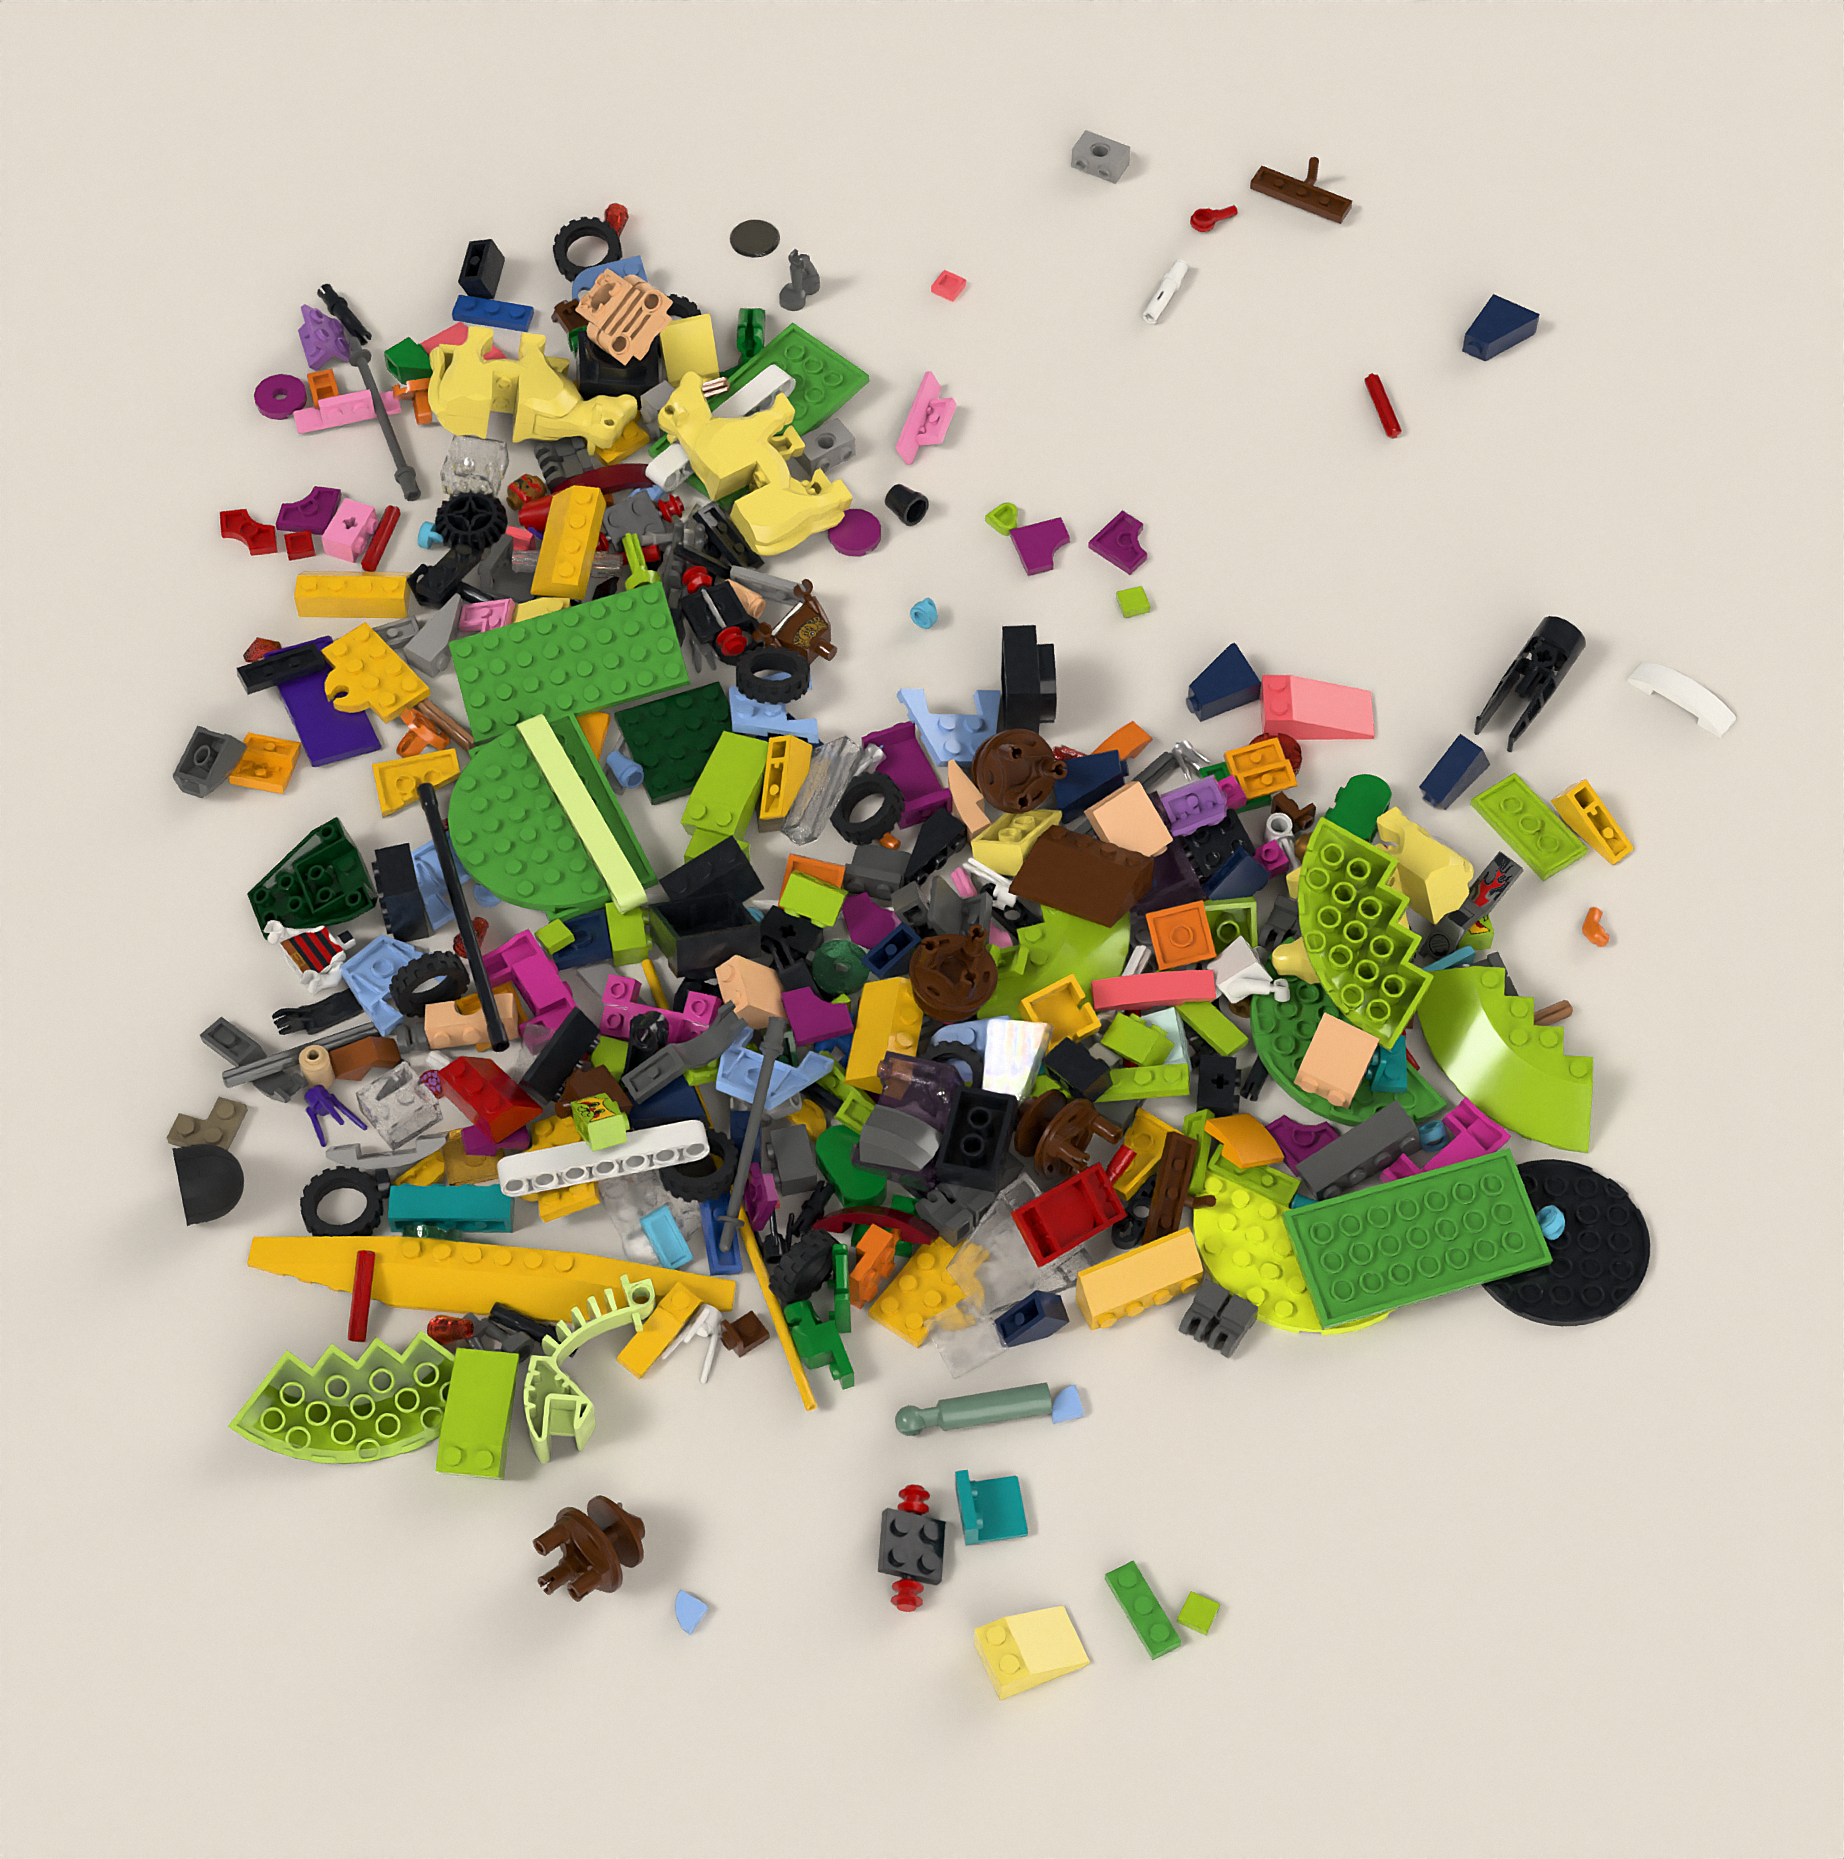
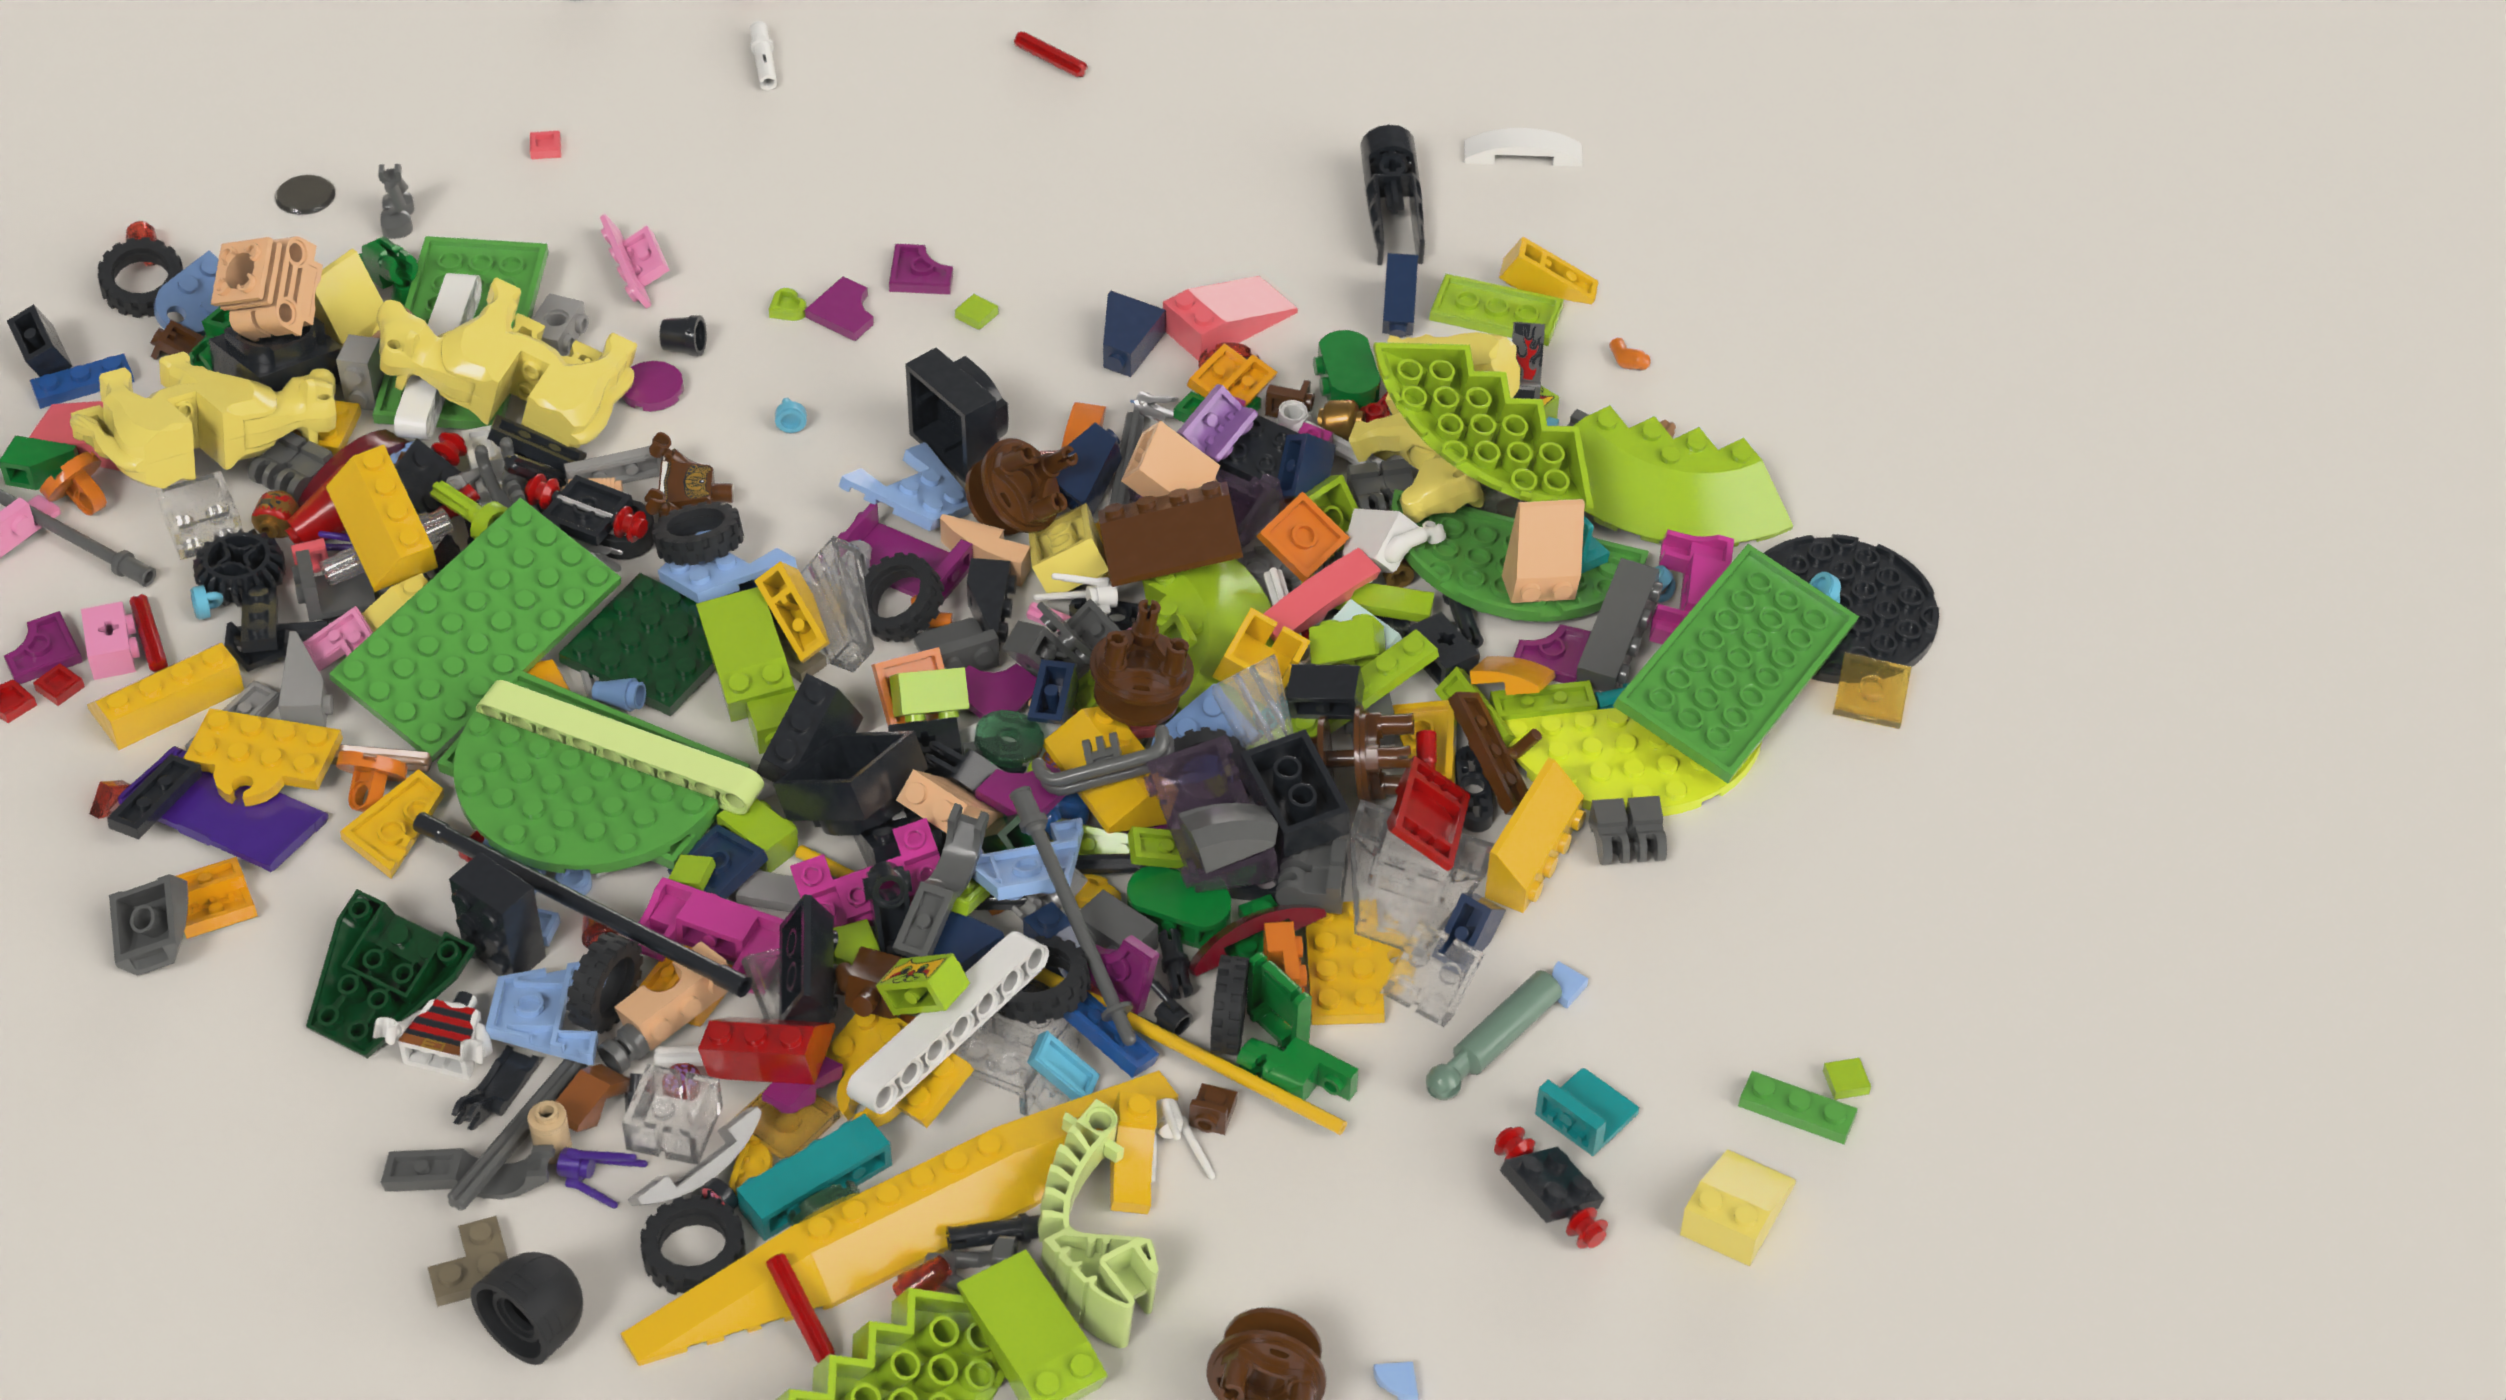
camera: 40 degrees left, 10 degrees down
(868, 1030) = (1103, 765): none -> dark grey piece
(1512, 1326) = (1872, 690): none -> clear yellow tile

